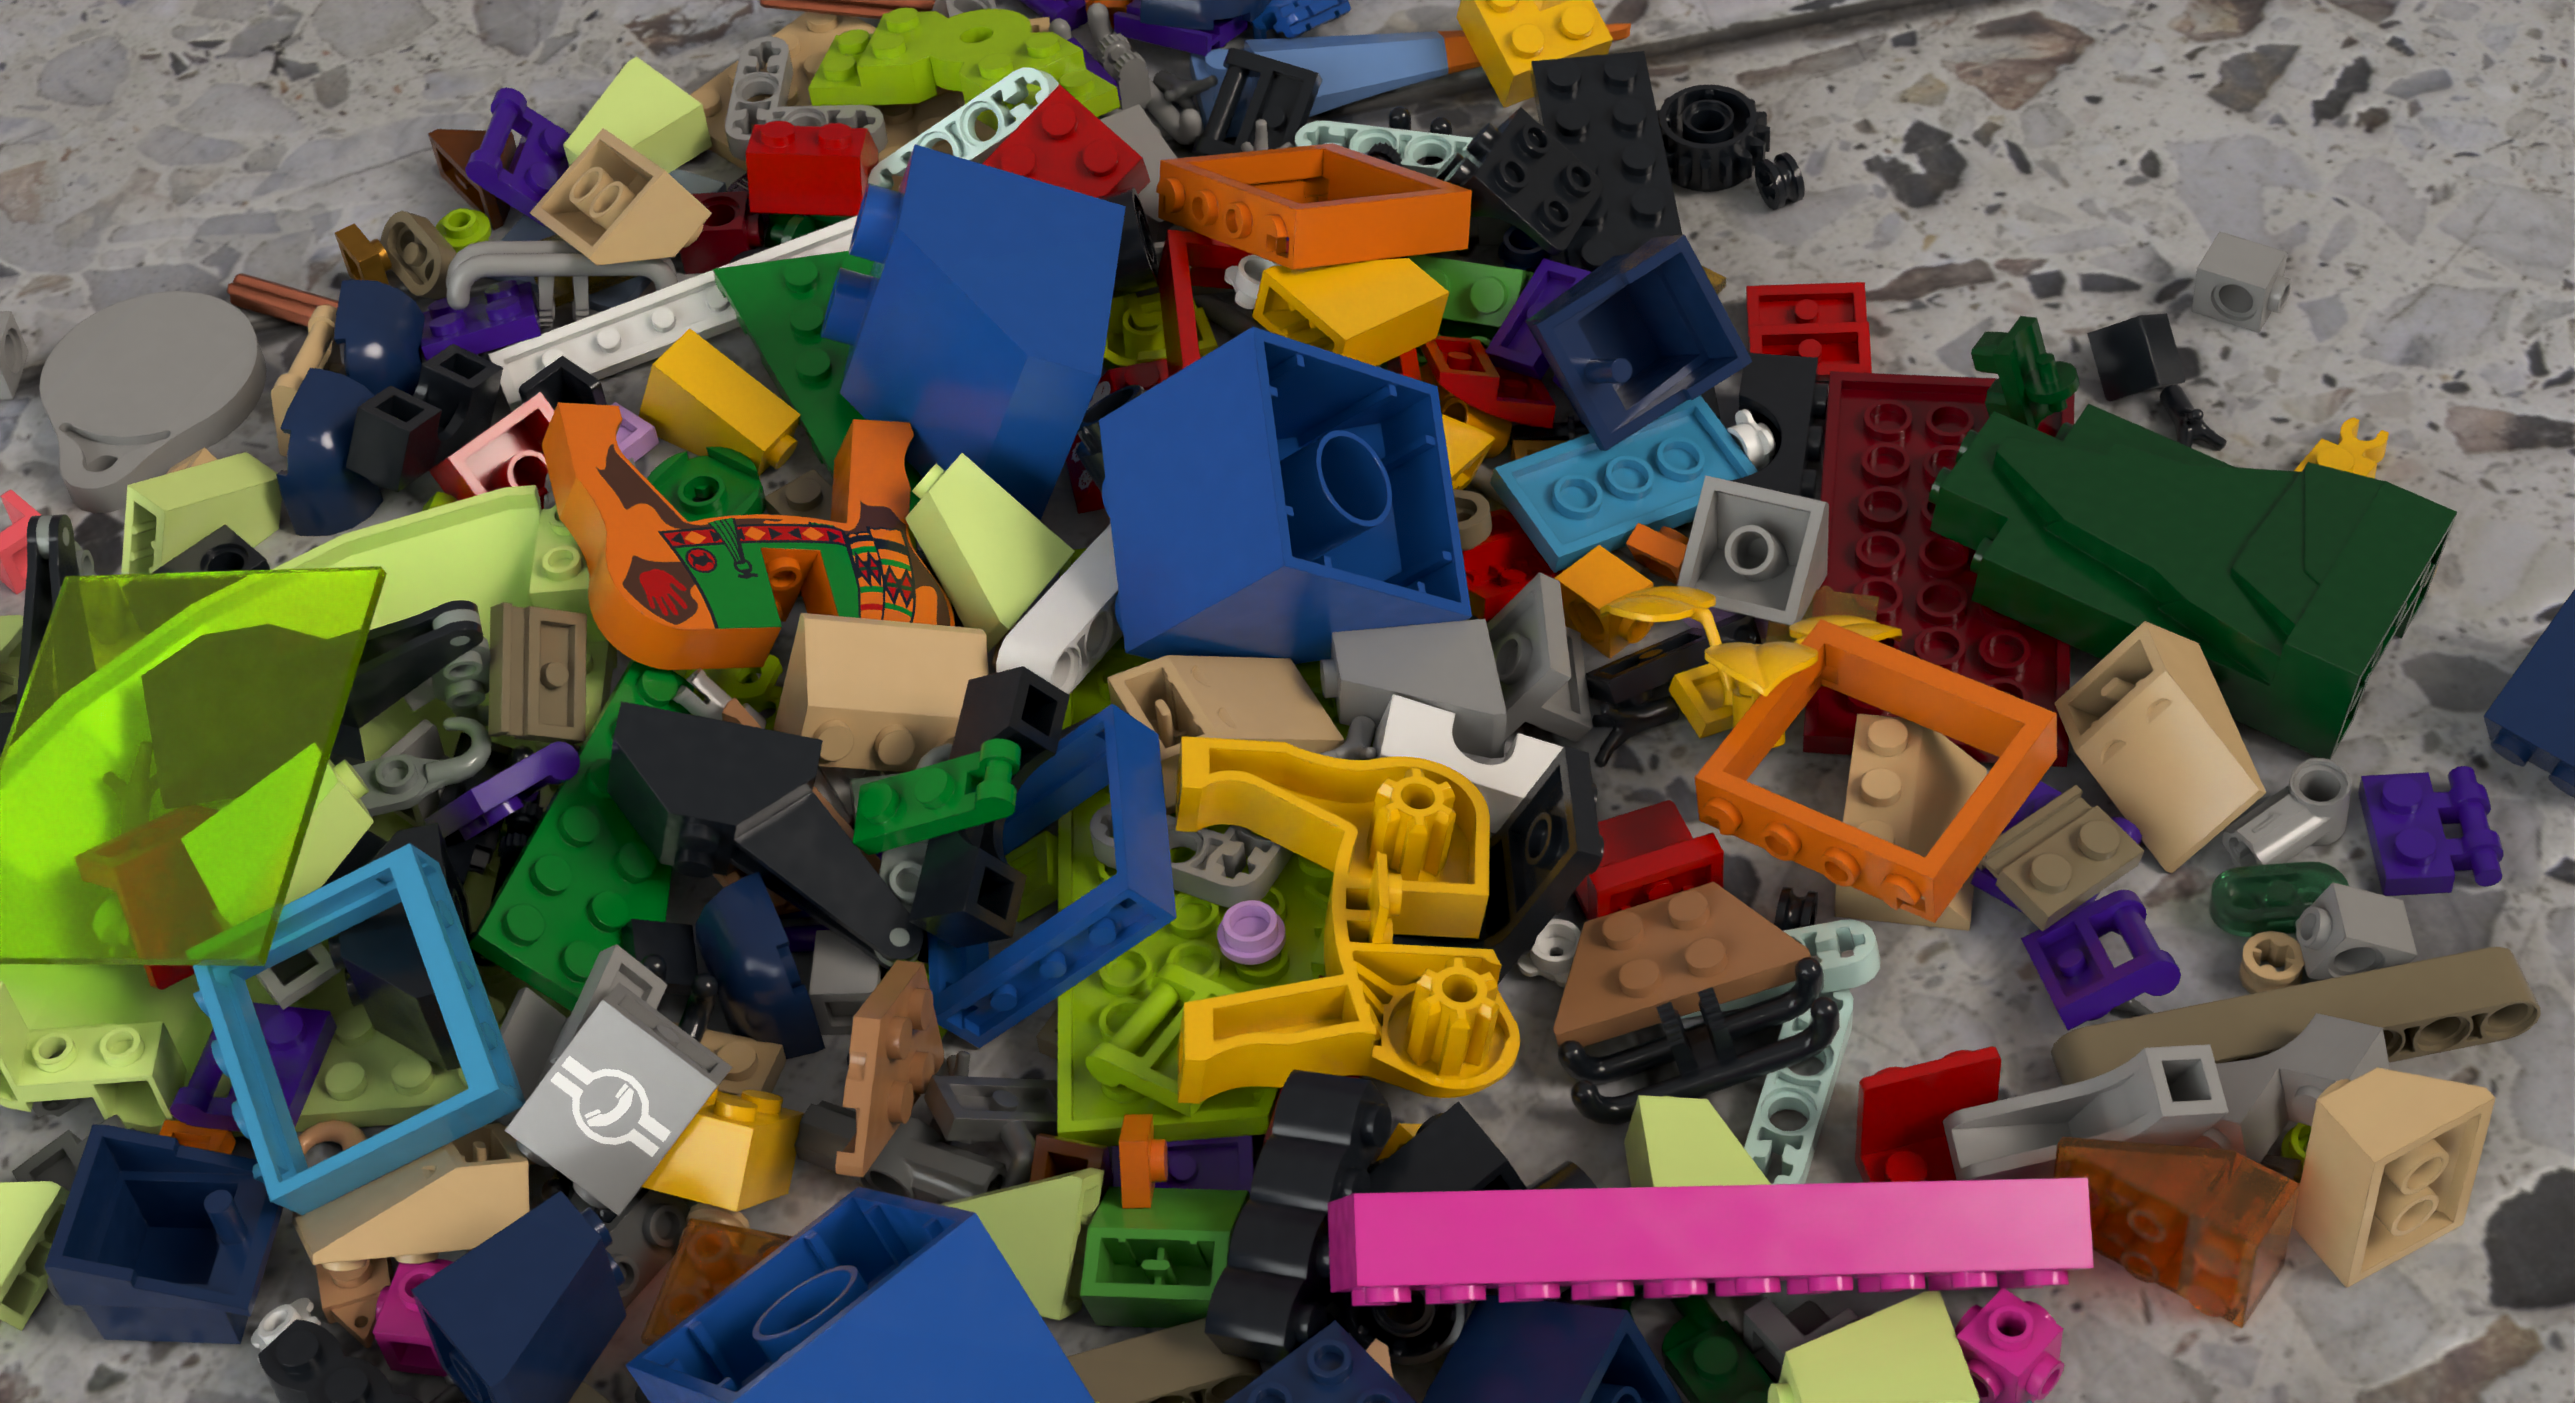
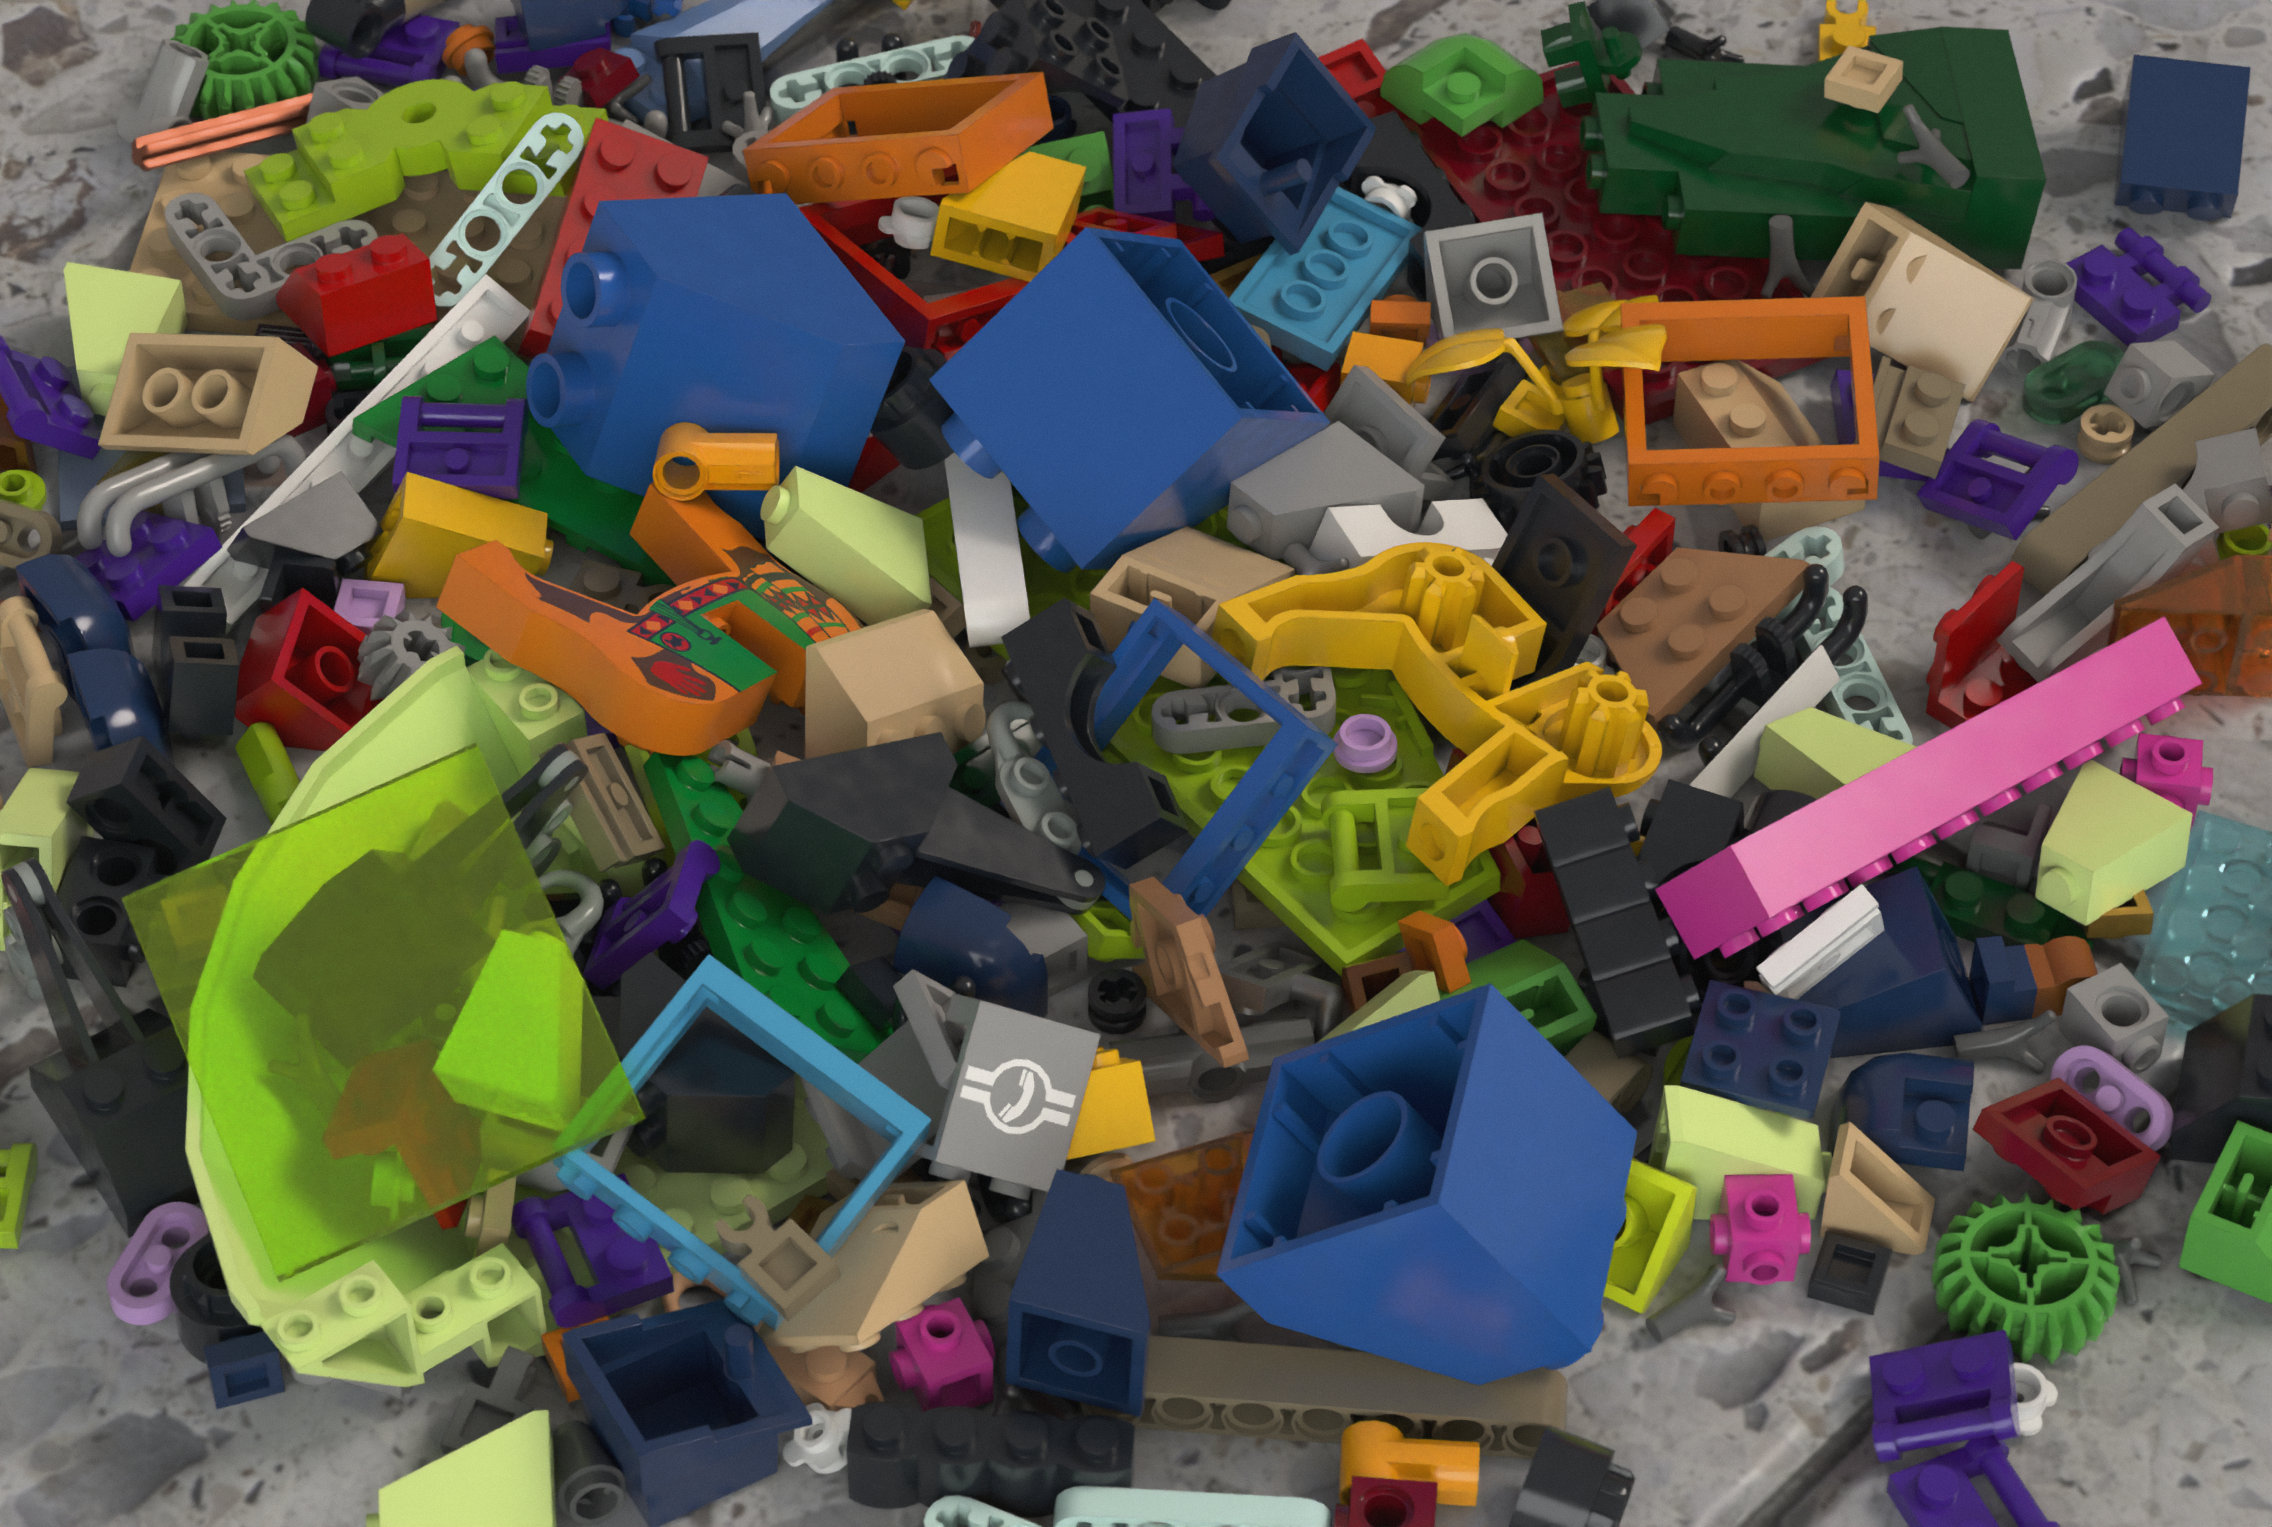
camera: 40 degrees left, 0 degrees up
(179, 1008) = (490, 1216): none -> tan plate
(273, 511) = (144, 800): none -> black brick
(288, 1156) = (781, 1263): none -> dark tan plate
(609, 346) = (318, 523): none -> slope
(755, 340) = (463, 459): none -> dark purple plate
(905, 416) = (720, 461): none -> light orange piece
(938, 798) = (1062, 740): green plate -> none
(1175, 64) = (602, 75): none -> dark red plate
(1461, 1344) = (1822, 945): none -> white plate
(1609, 1116) = (1739, 757): none -> white sticker
(1649, 763) = (1515, 464): none -> black gear
(1901, 356) = (1462, 84): none -> bright green brick
(2059, 644) = (1783, 259): none -> dark grey bar
(2244, 499) = (1863, 79): none -> tan plate
(2255, 598) = (1932, 151): none -> dark grey bar

